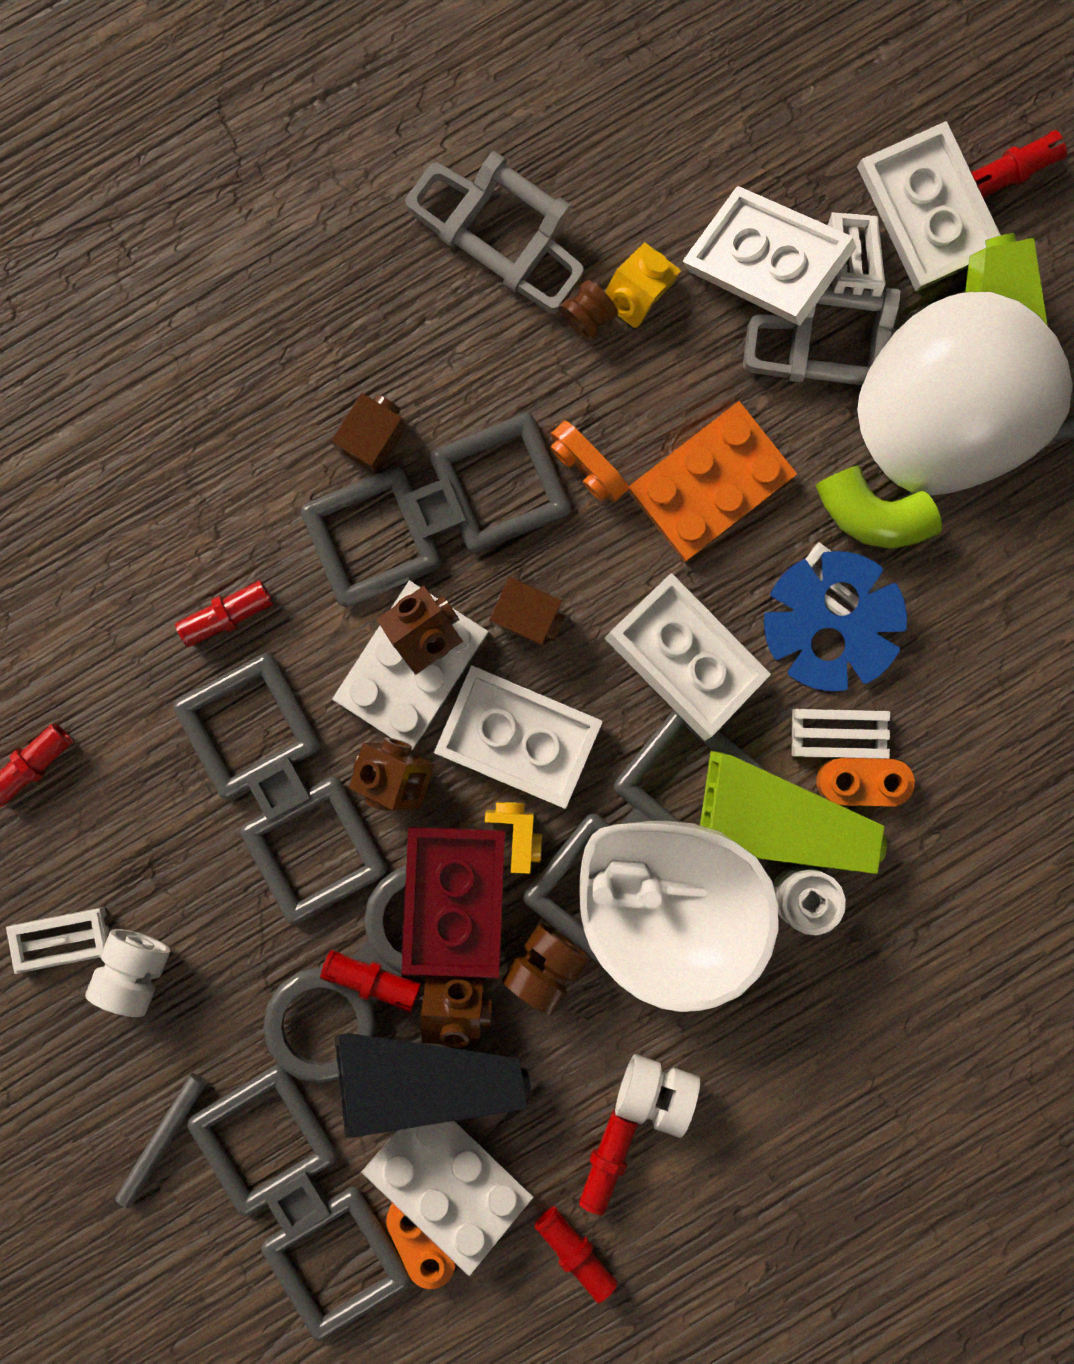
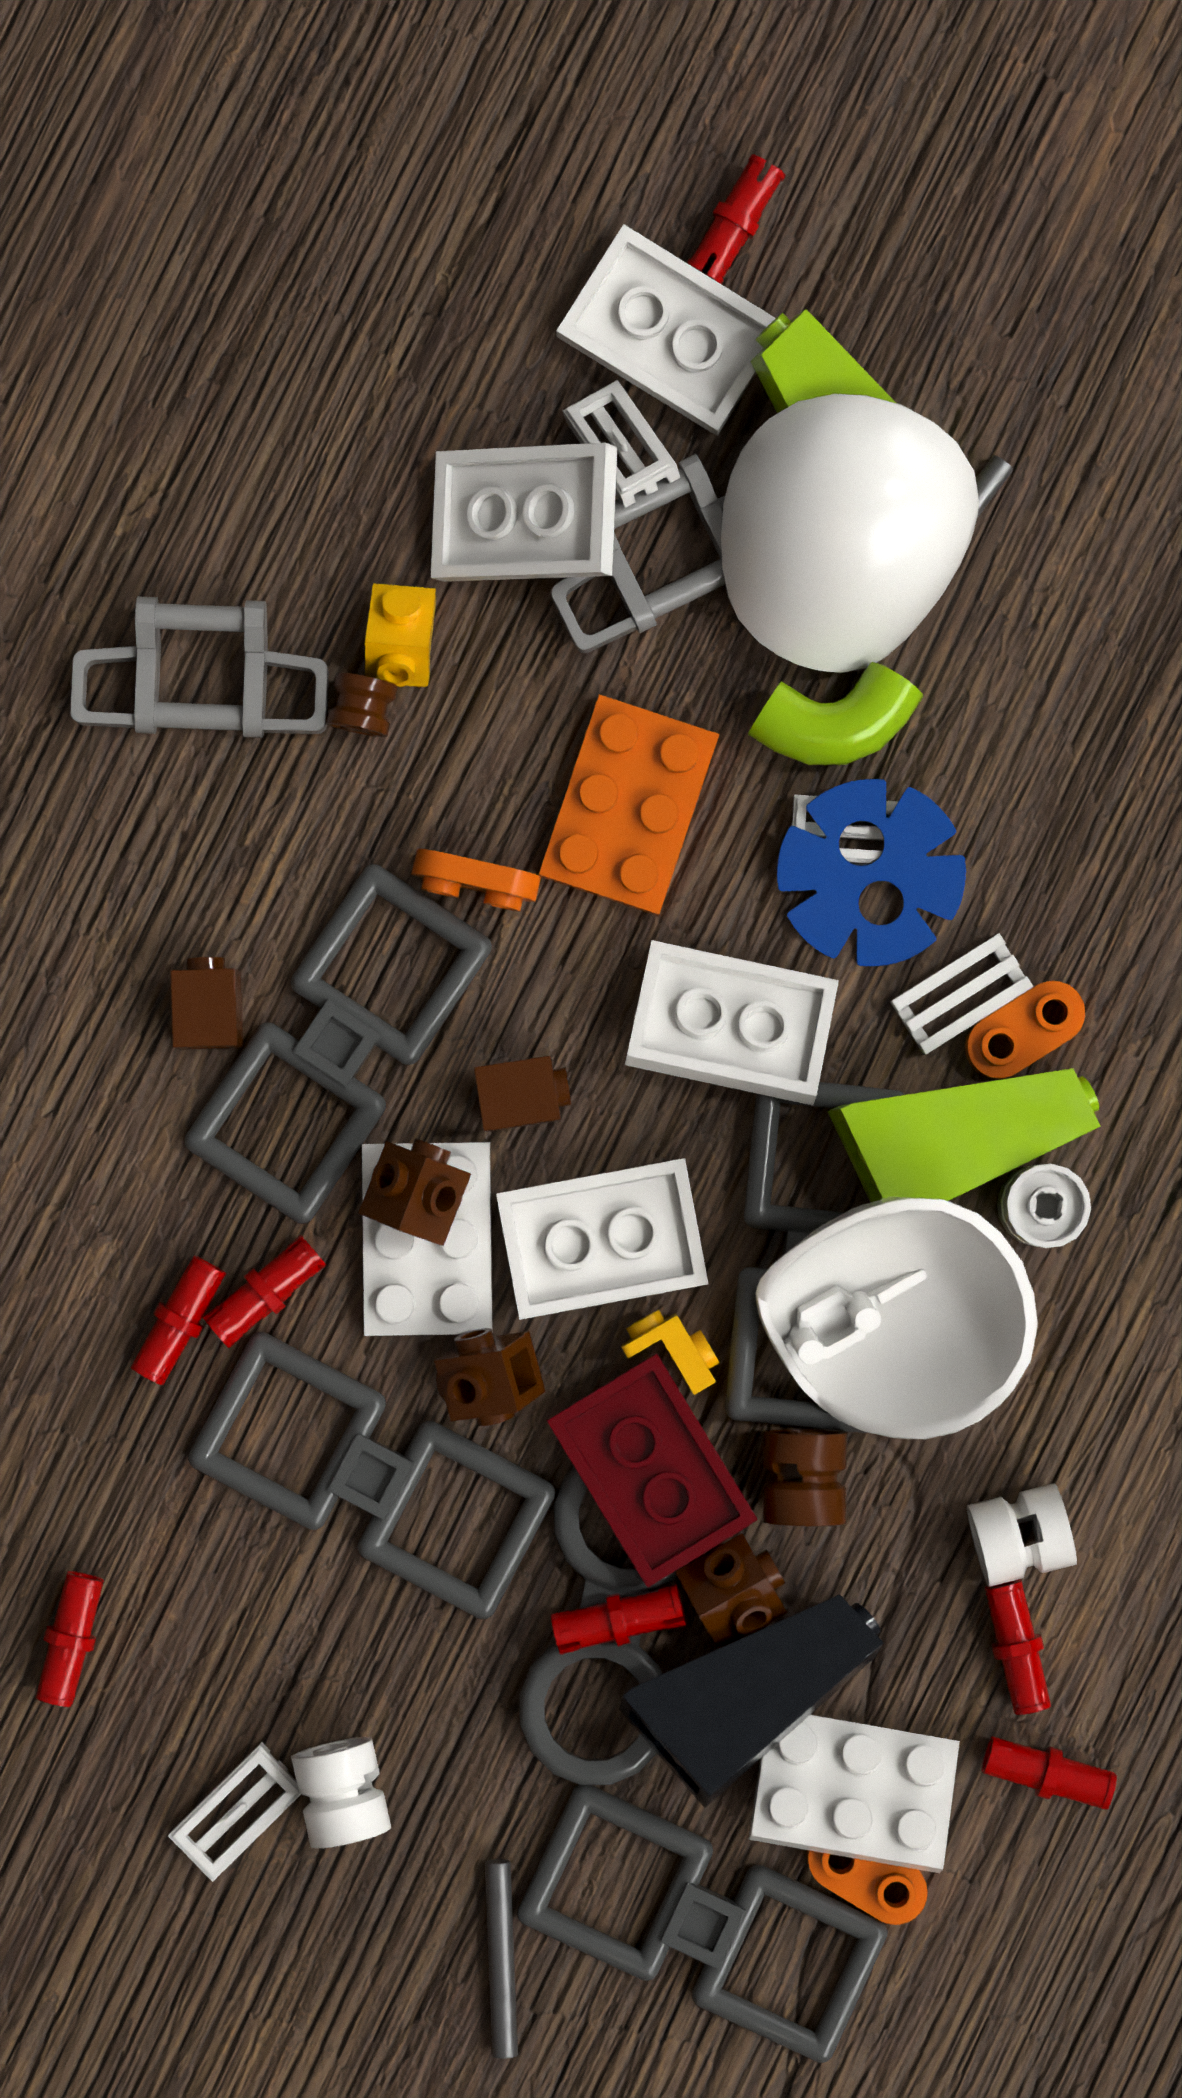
camera: 30 degrees left, 0 degrees up
(288, 631) = (264, 1291): none -> red pin

